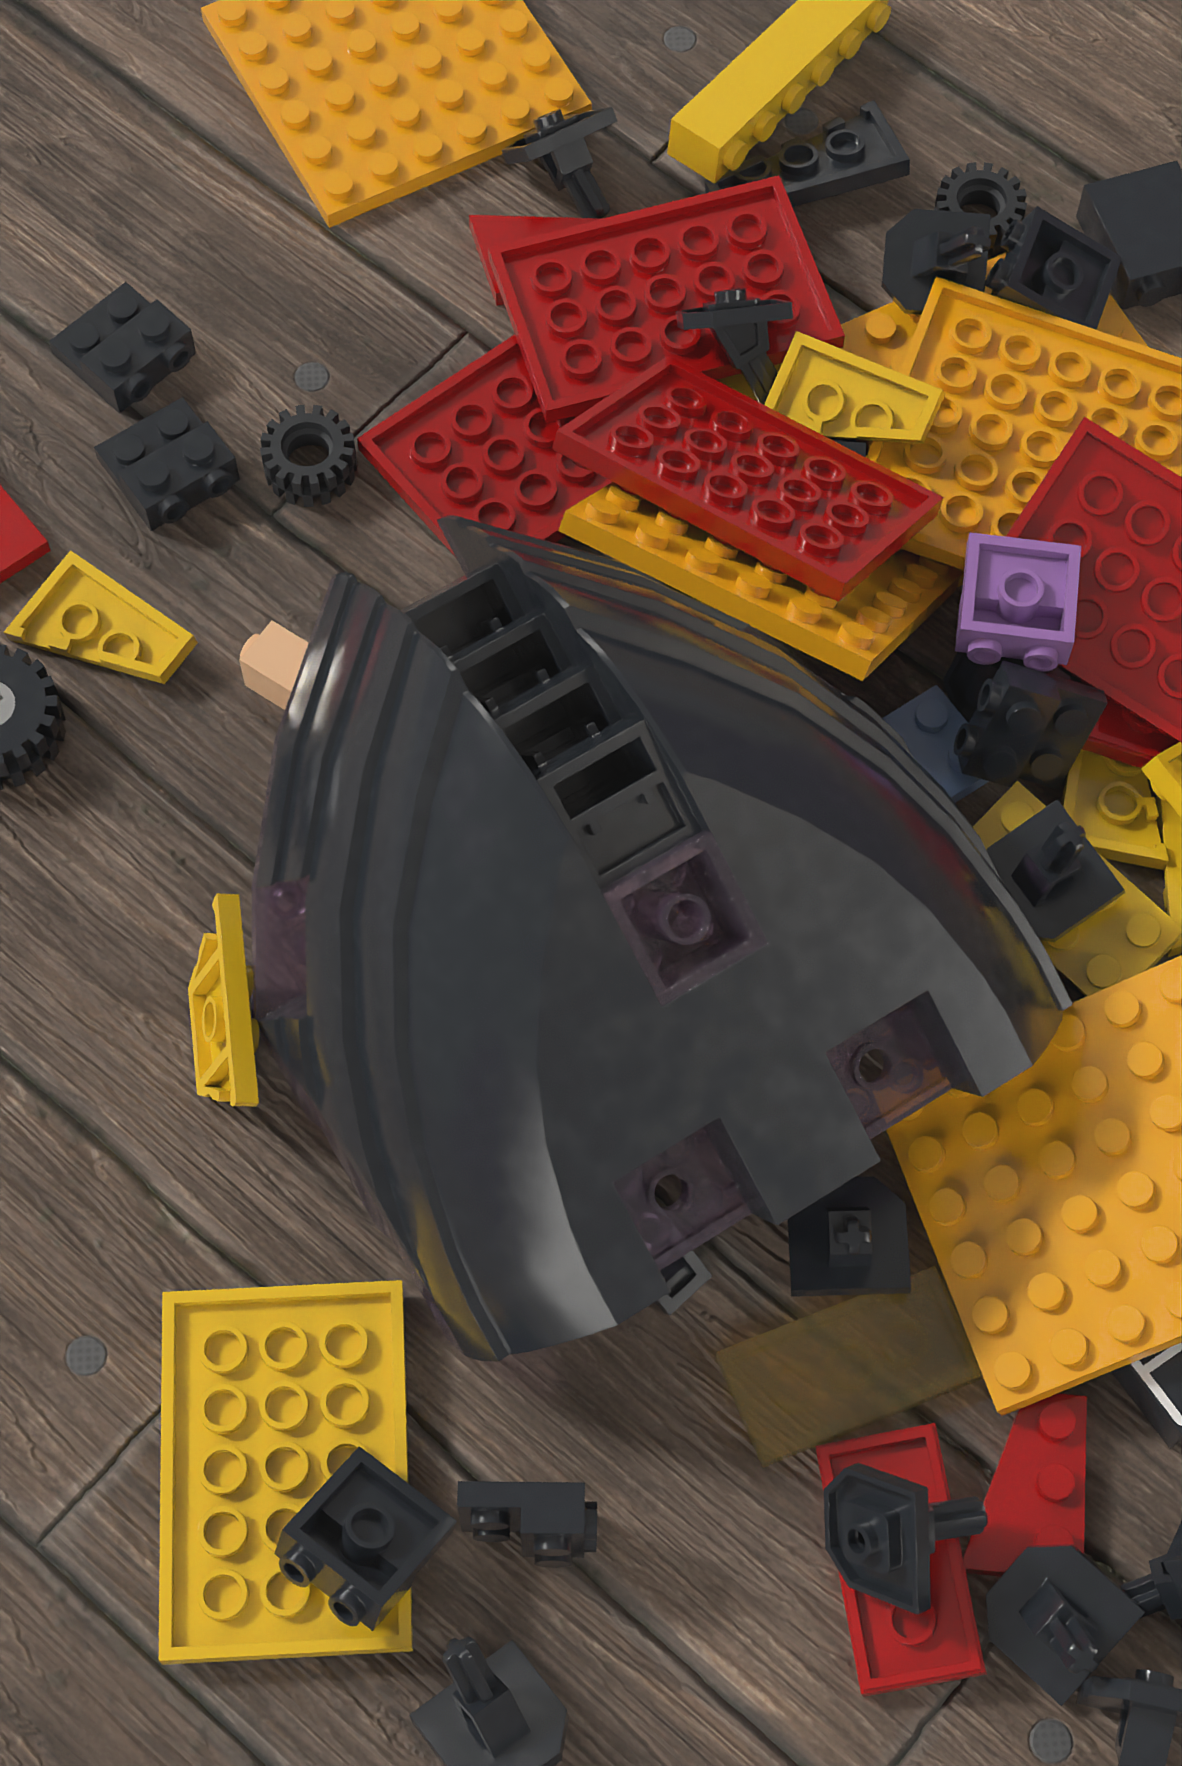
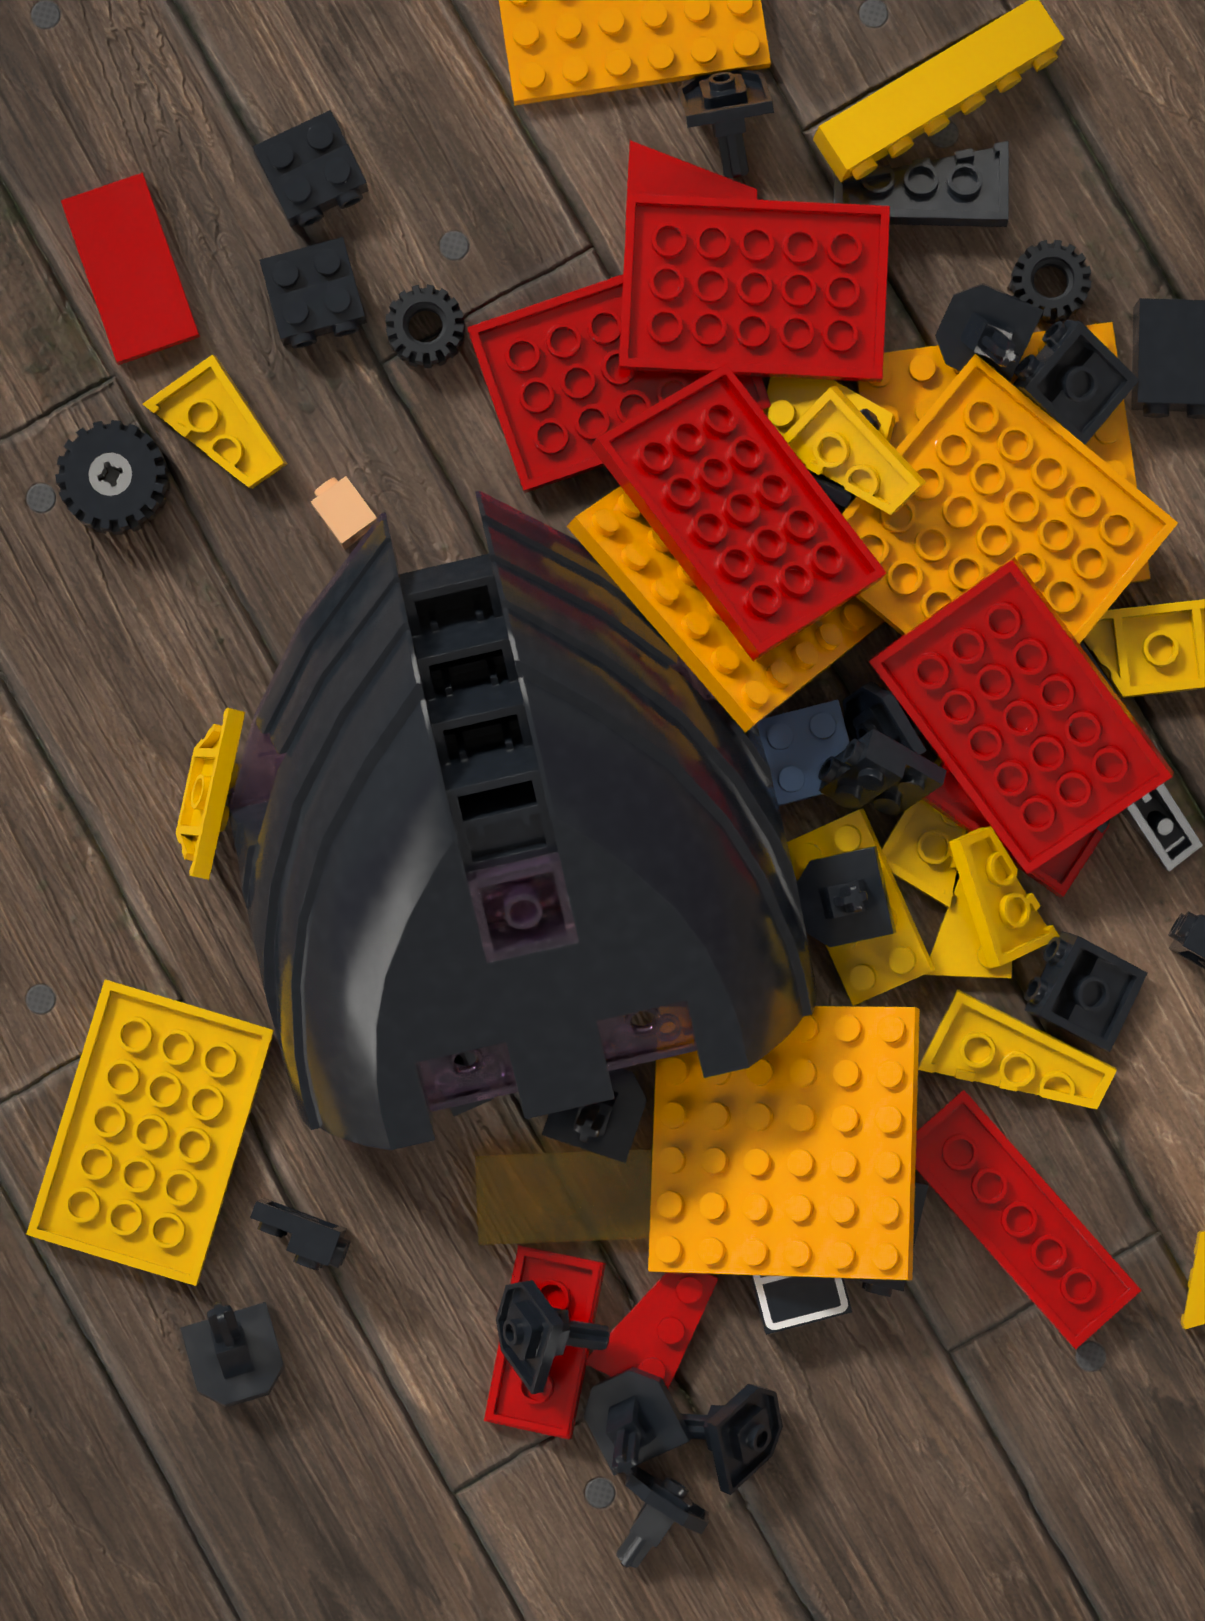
camera: 20 degrees right, 20 degrees up
(362, 1539) = (184, 1208): black plate -> none
(741, 332) = (795, 353): black piece -> none
(1018, 601) = (904, 685): medium lavender plate -> none

